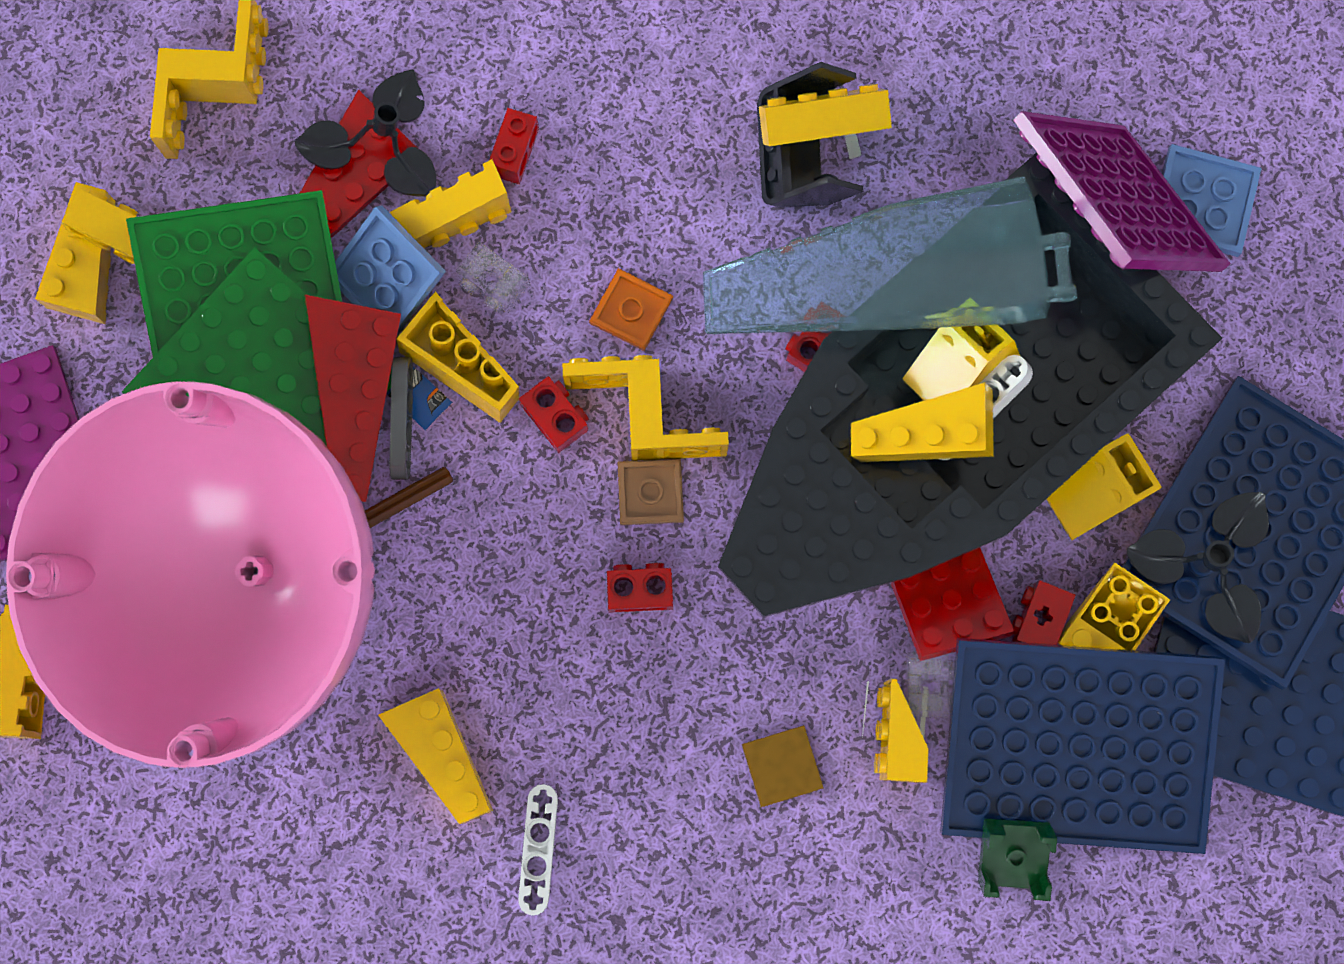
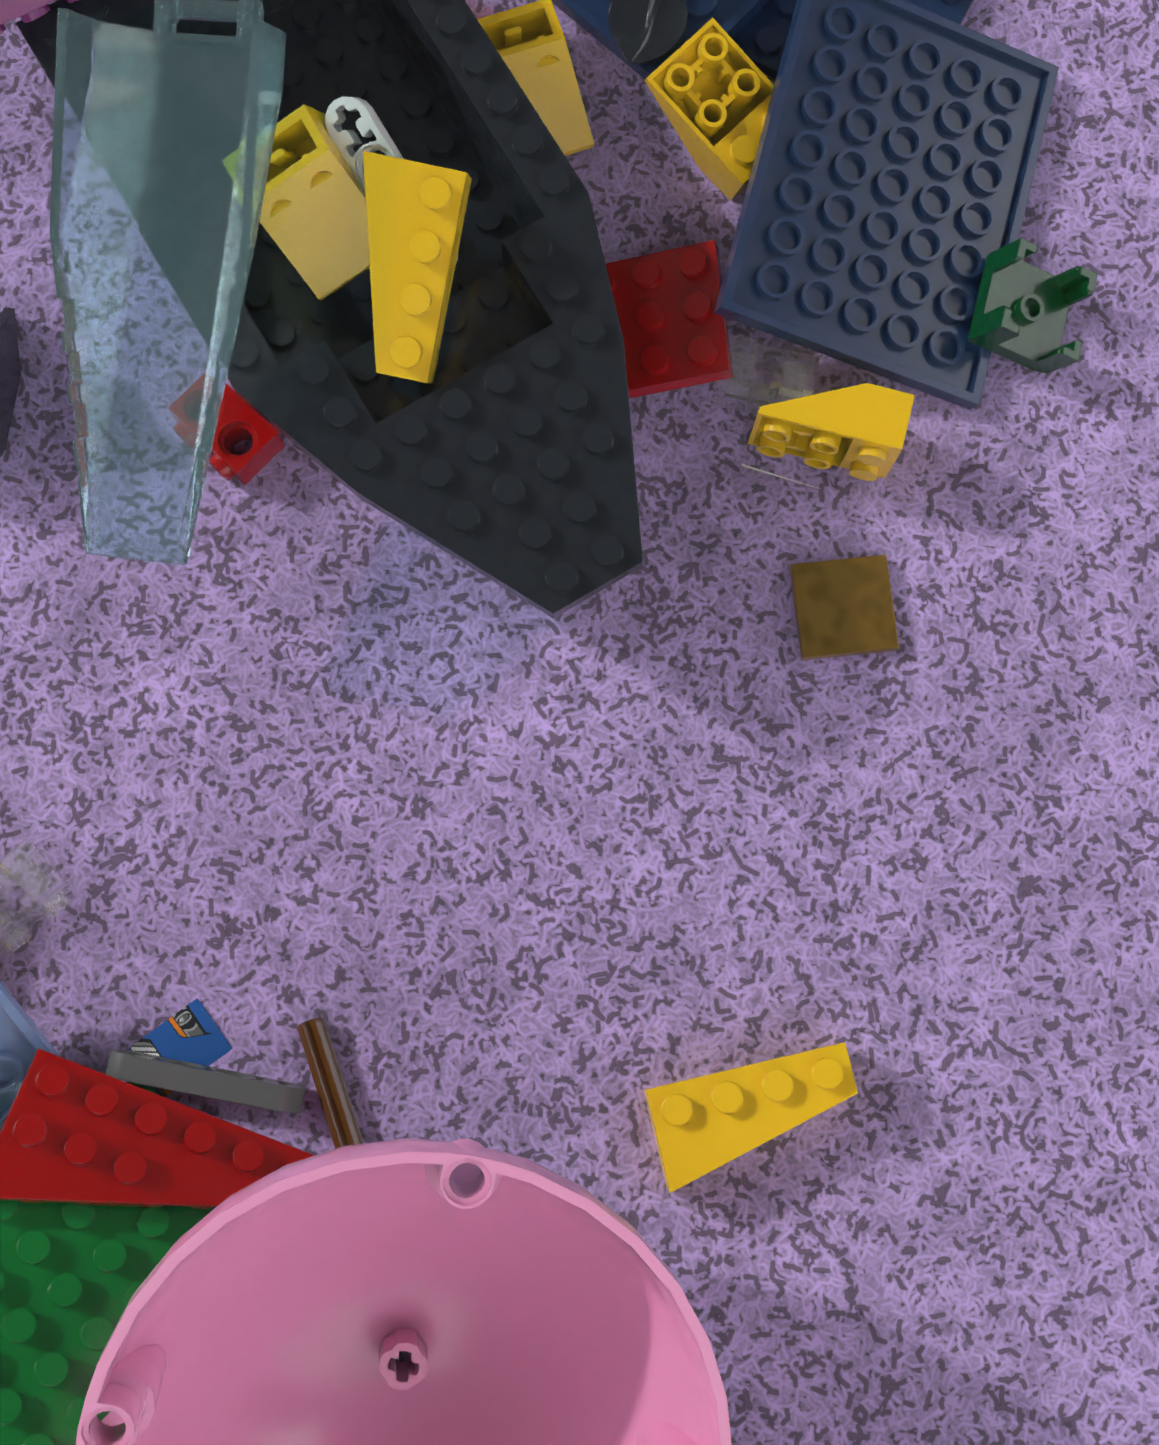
camera: 80 degrees left, 0 degrees up
(456, 358) = (132, 973): yellow wedge -> none
(543, 849) = (907, 980): white beam -> none
(549, 417) = (256, 853): red brick -> none
(631, 309) = (113, 696): orange tile -> none
(640, 598) = (558, 762): red brick -> none
(645, 408) = (272, 699): yellow bracket -> none
(650, 492) = (402, 720): medium nougat tile -> none
(1056, 607) = (683, 187): red brick -> none

